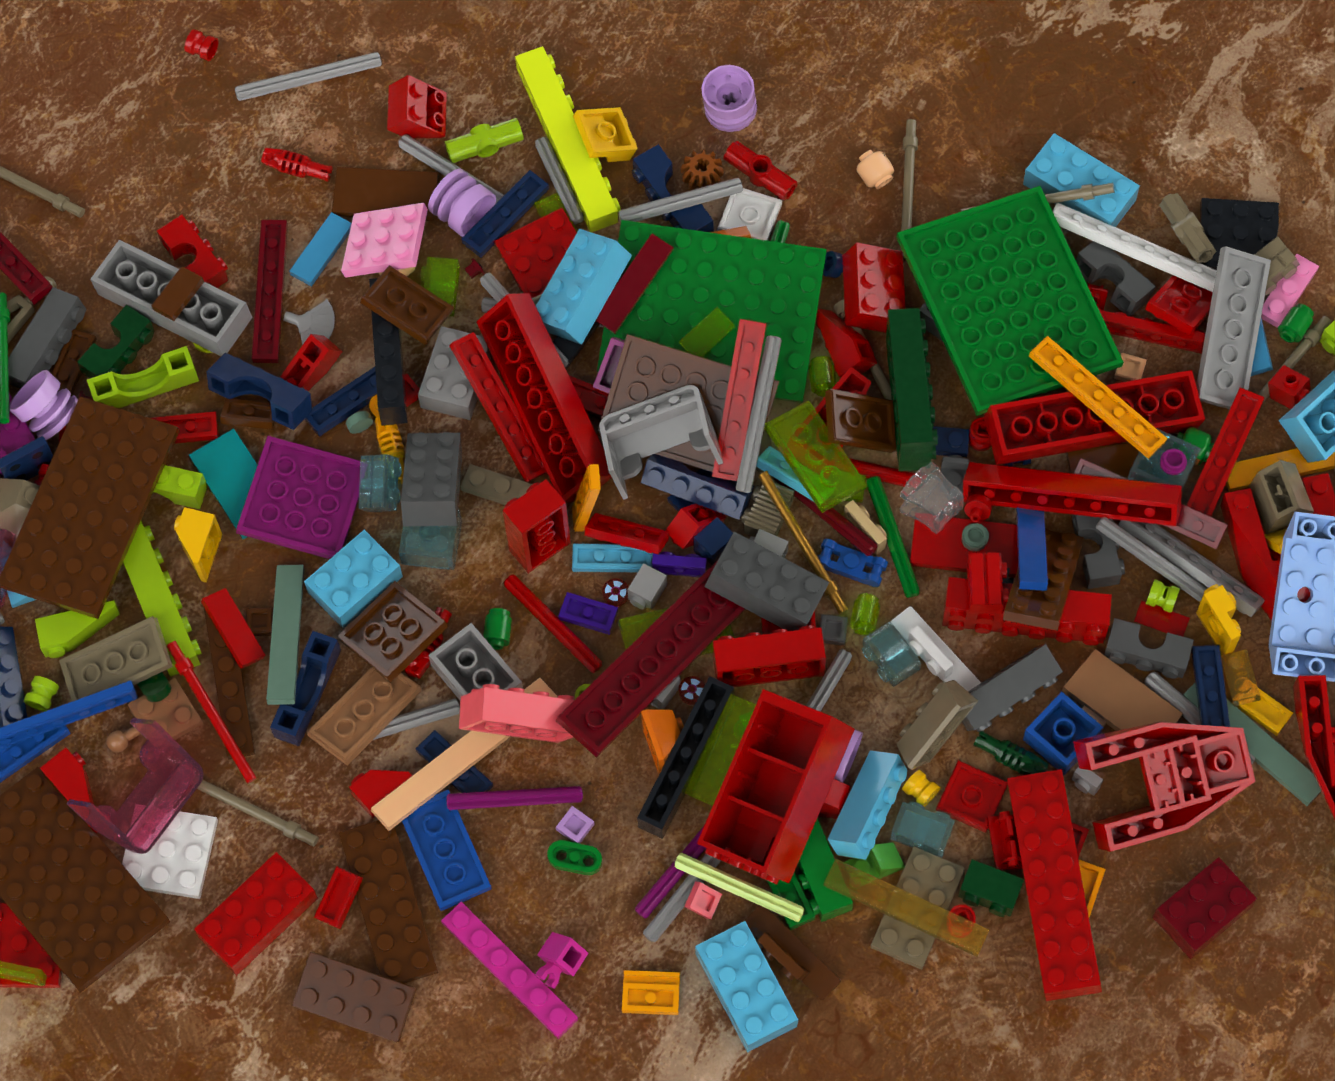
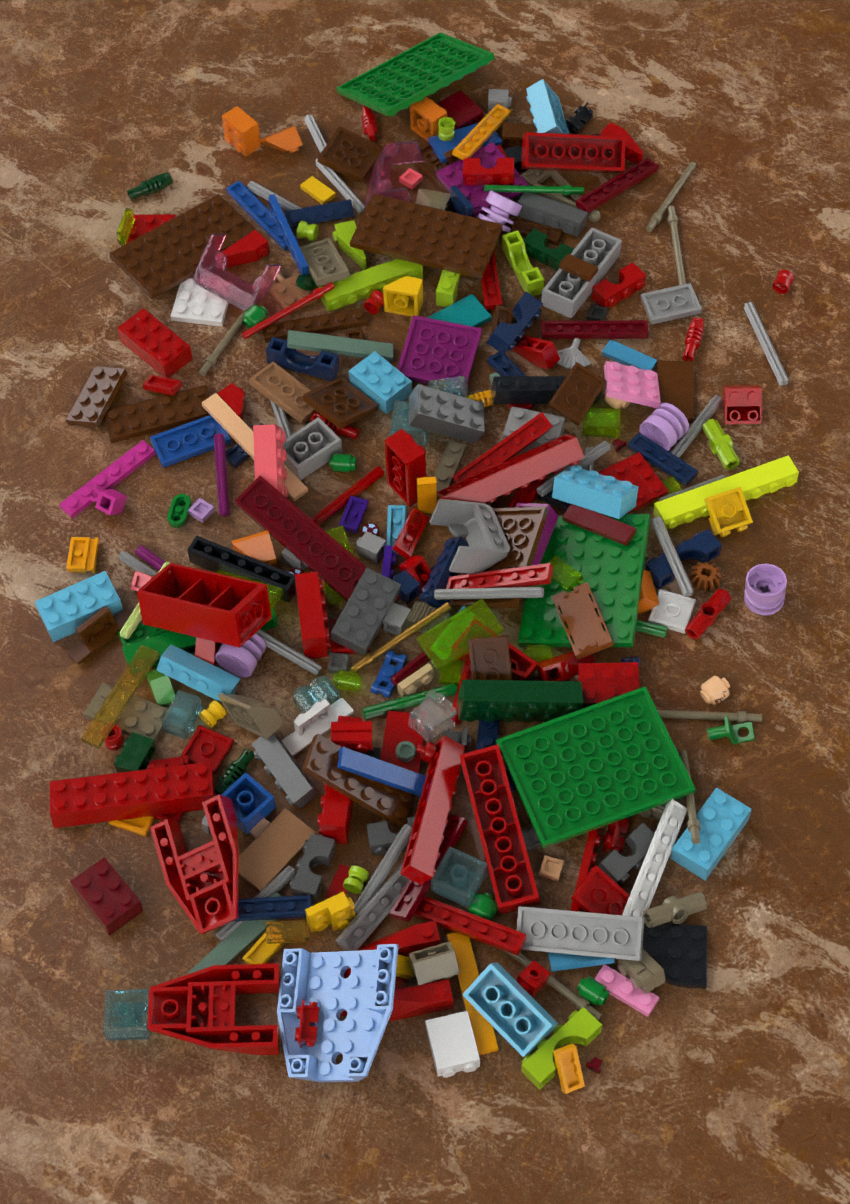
camera: 90 degrees right, 10 degrees down
(69, 180) = (673, 222): none -> dark tan bar
(195, 589) = (374, 303): none -> red wheel
(214, 763) = (254, 316): none -> green head
(229, 190) = (670, 303): none -> light grey plate
(233, 628) = (346, 319): red tile -> none
(238, 286) = (596, 313): none -> pearl dark grey tile
(792, 306) = (582, 621): none -> dark orange piece
(934, 157) = (731, 732): none -> green bracket
(1098, 397) = (508, 821): light orange tile -> none
(1173, 461) = (454, 873): magenta plate -> none

